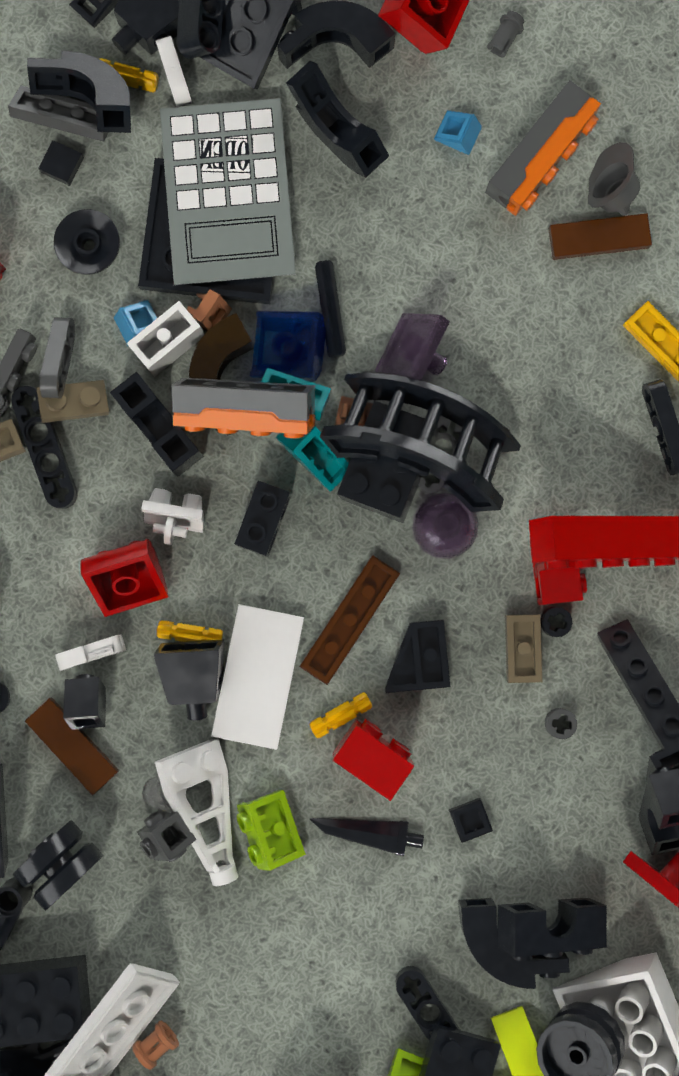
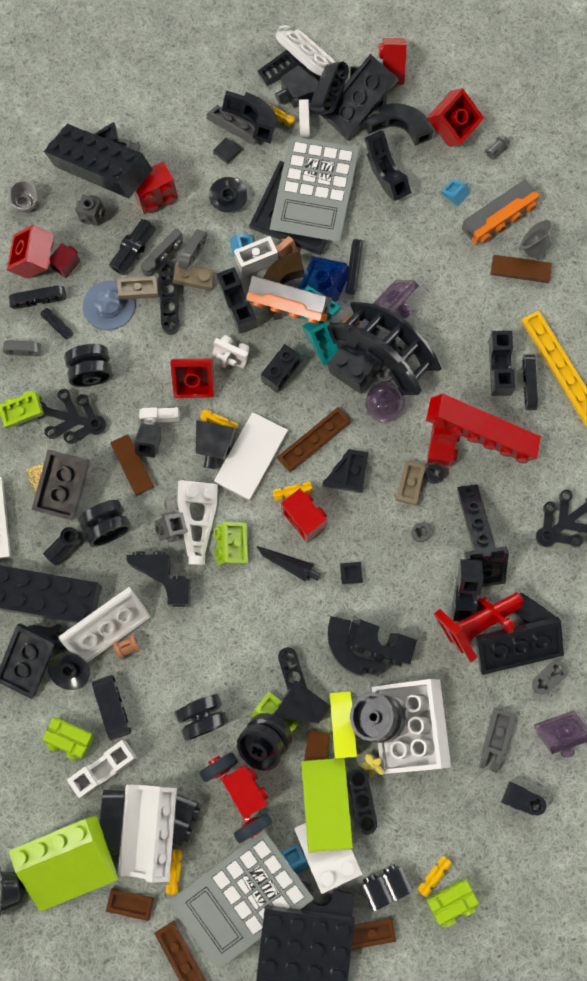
camera: 20 degrees right, 10 degrees down
(167, 908) = (158, 567): none -> black arch
(619, 431) = (501, 375): none -> black arch

